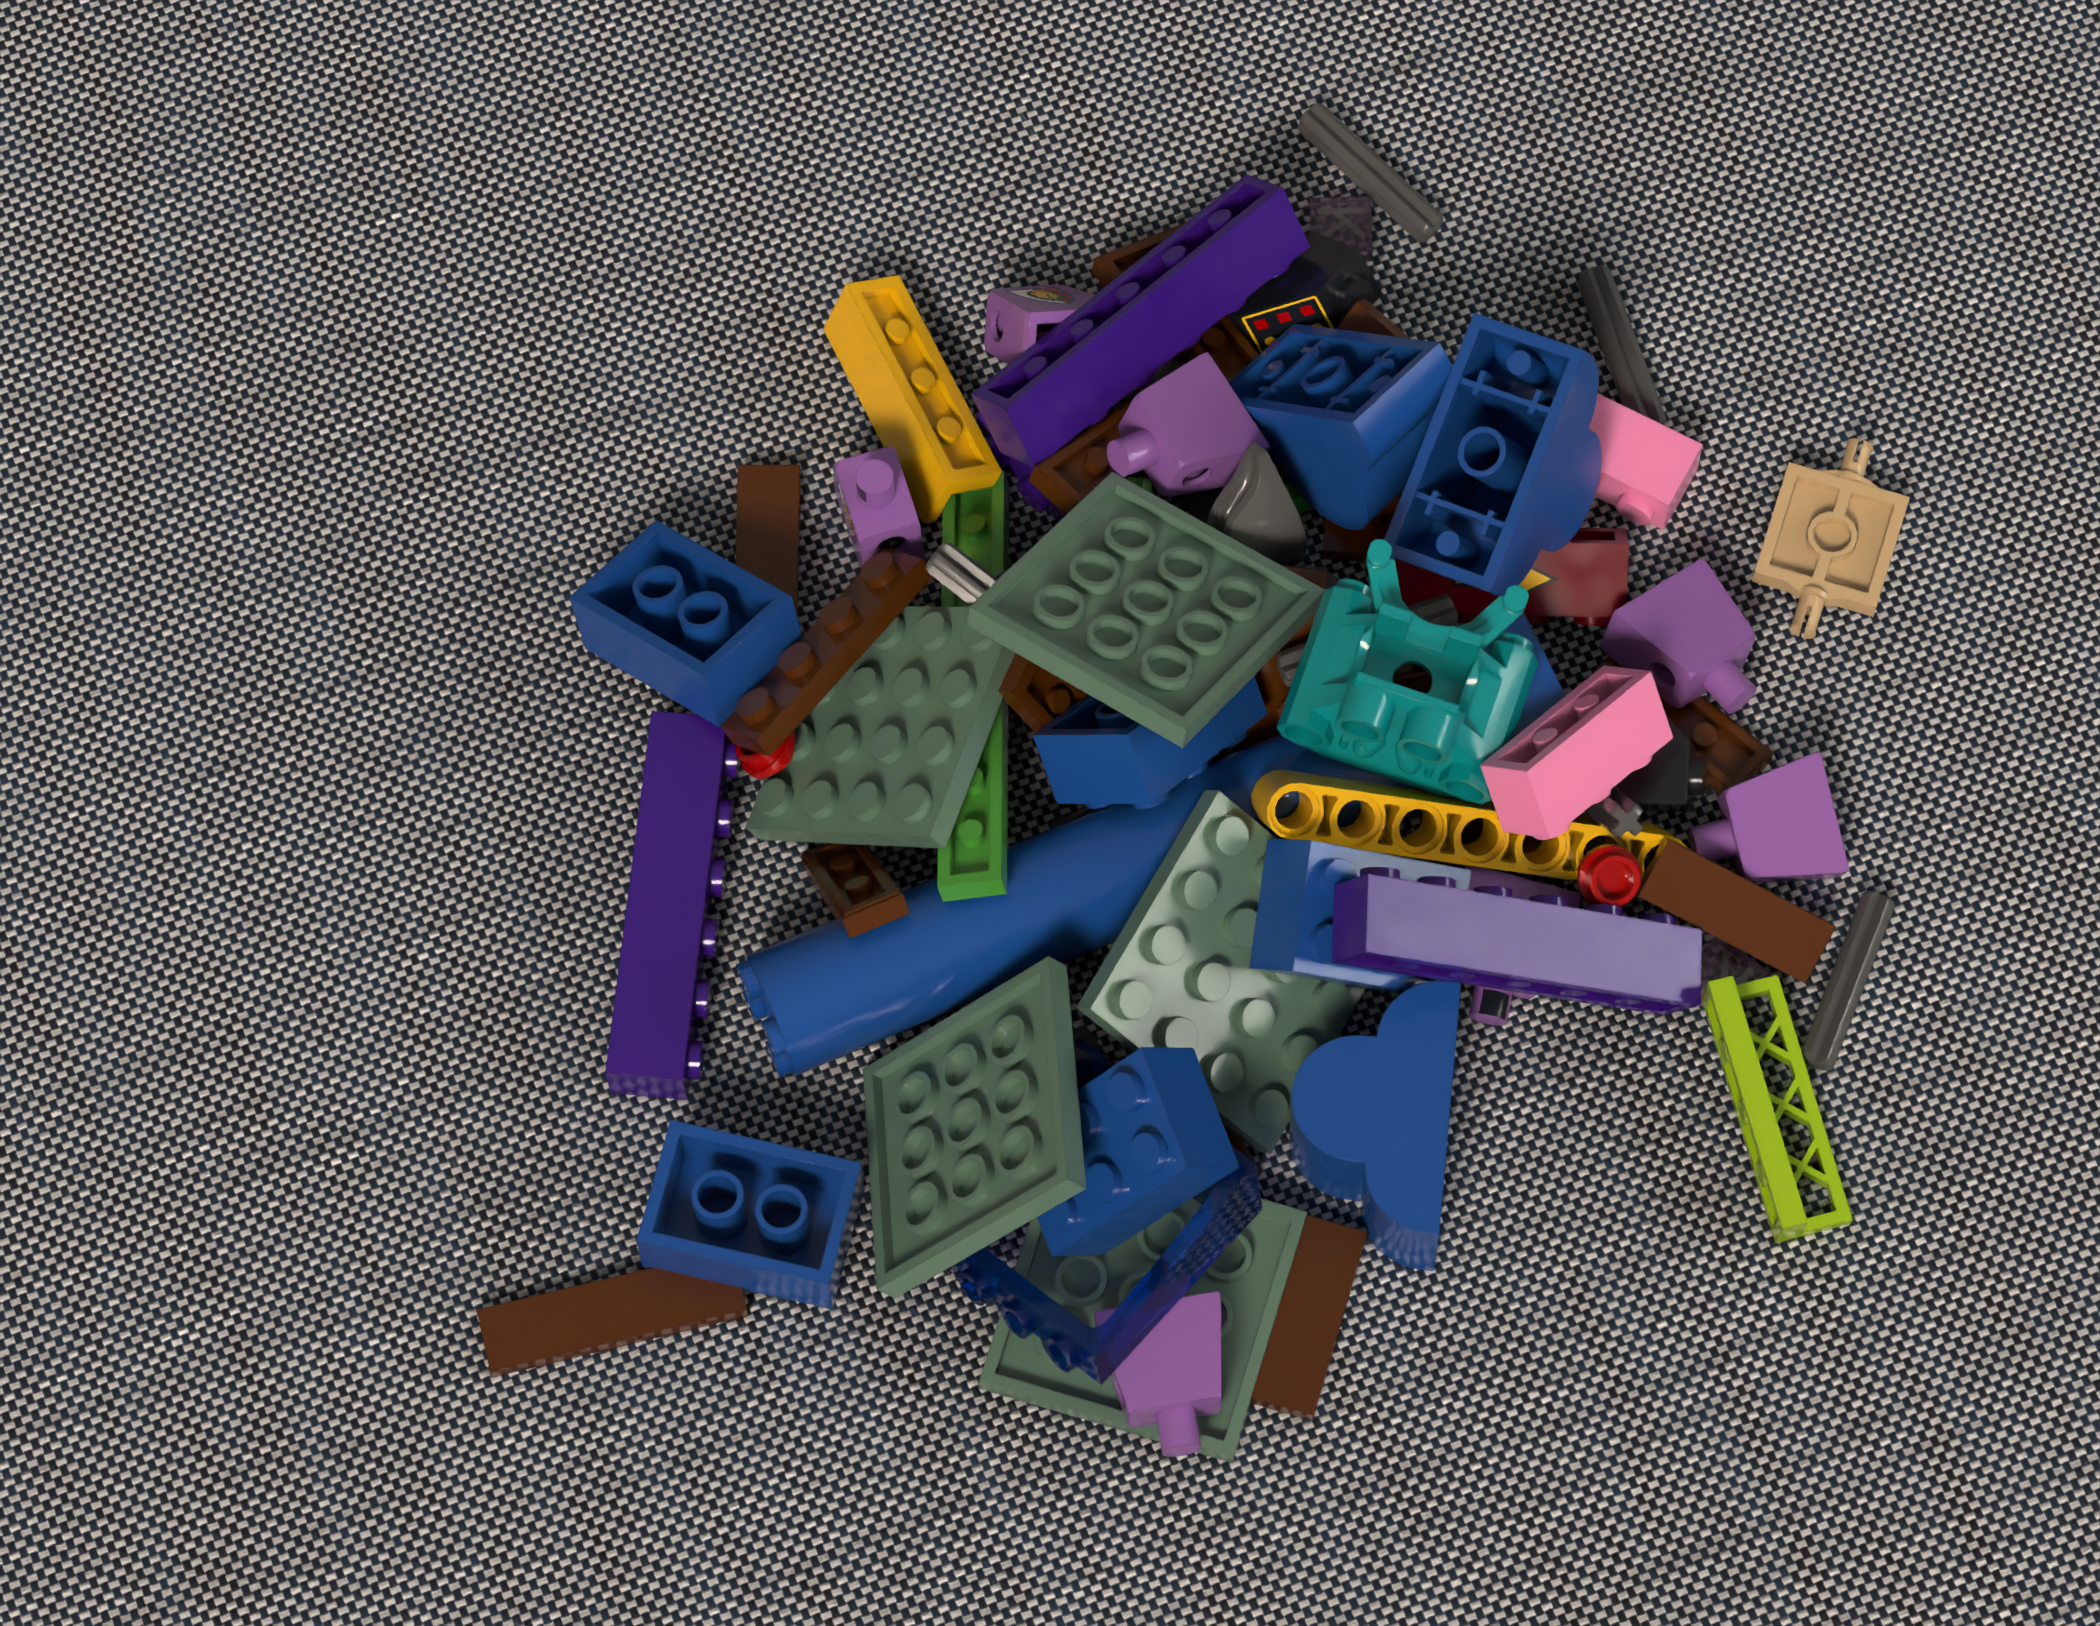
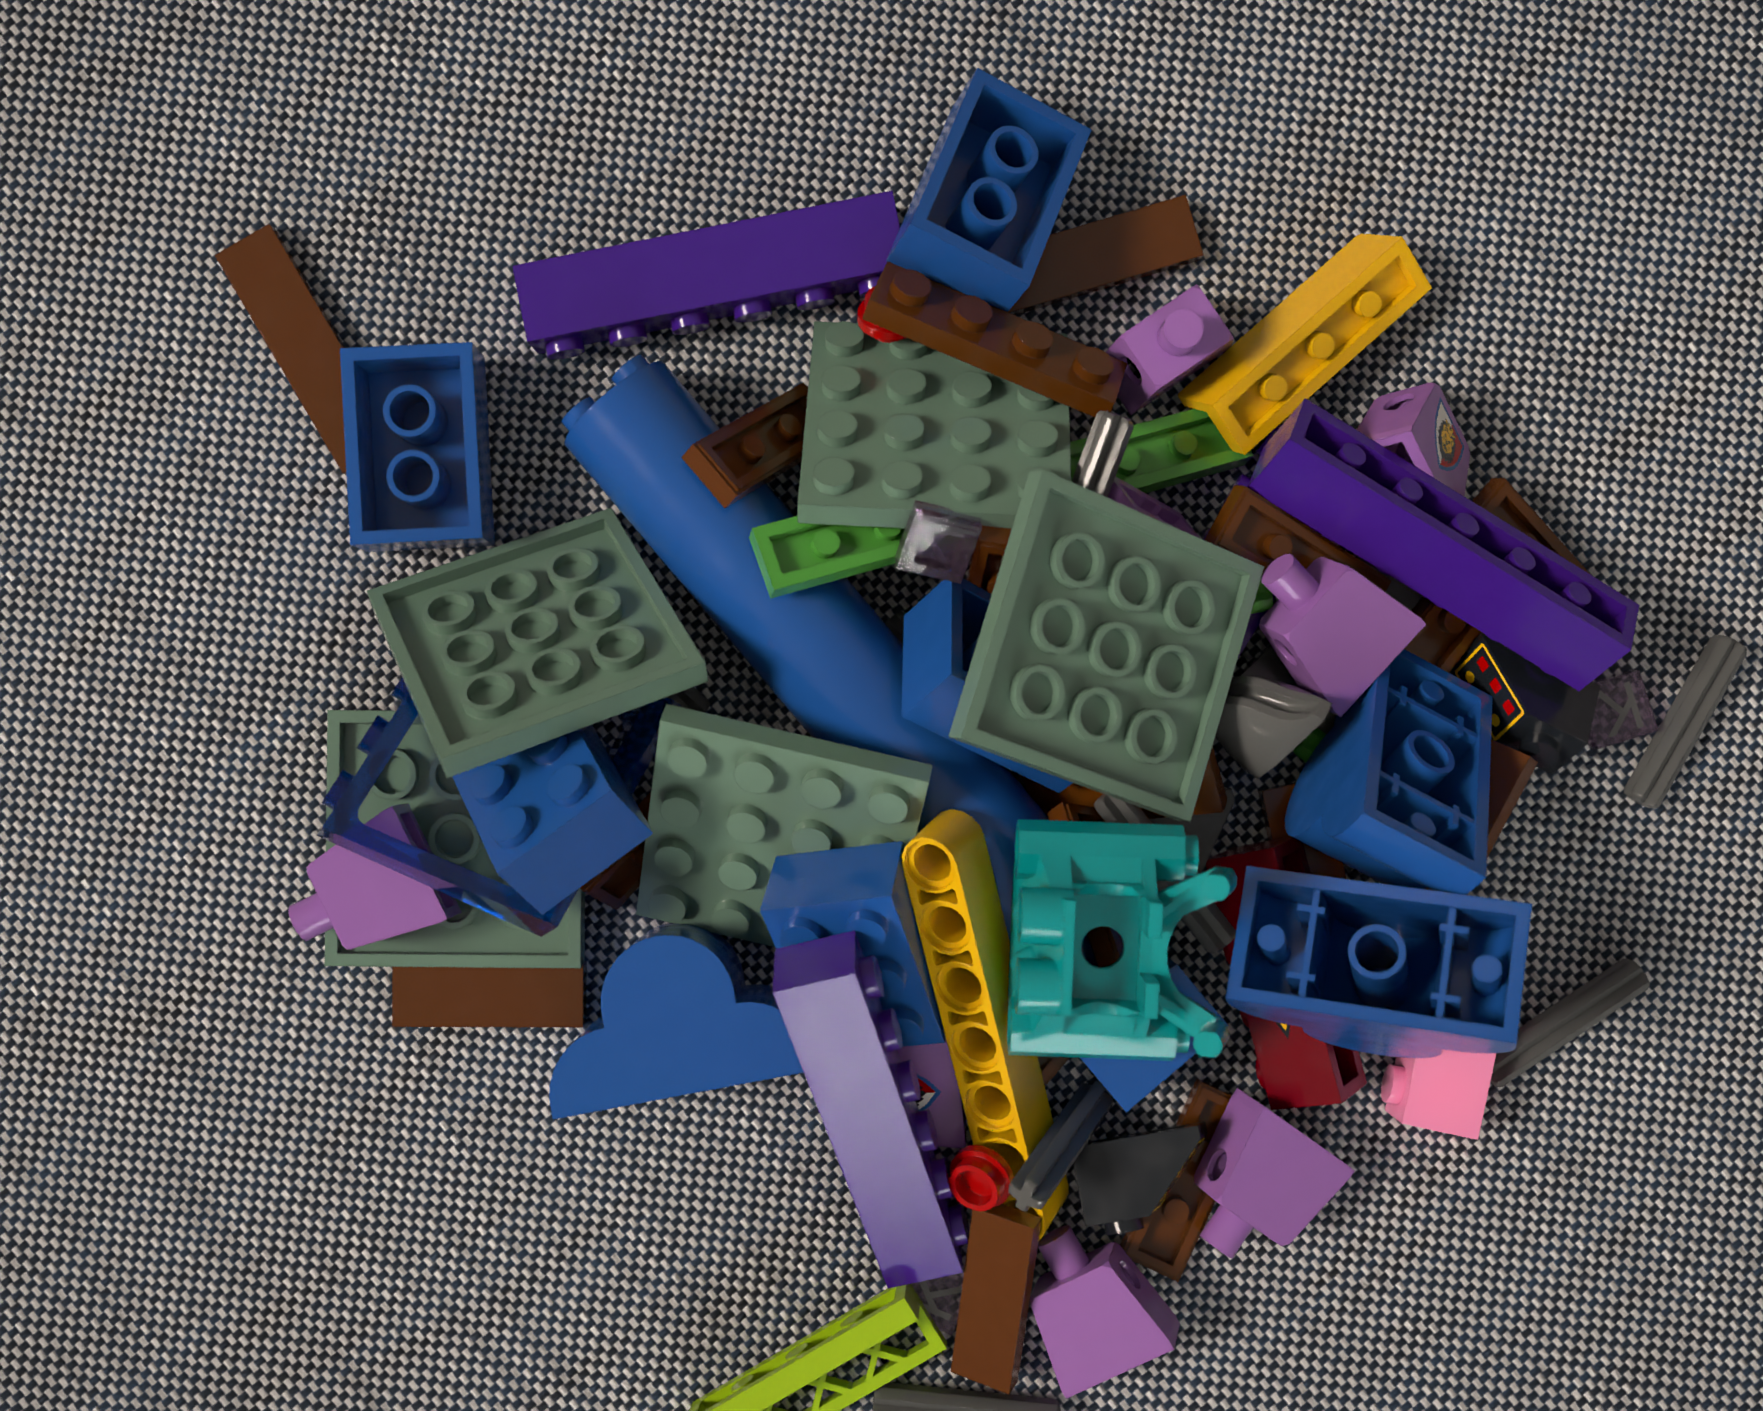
camera: 70 degrees right, 20 degrees up
(1002, 730) = (937, 542): none -> tile
(1576, 752) = (1084, 1126): bright pink brick -> none
(1831, 539) = (1419, 1282): tan plate -> none

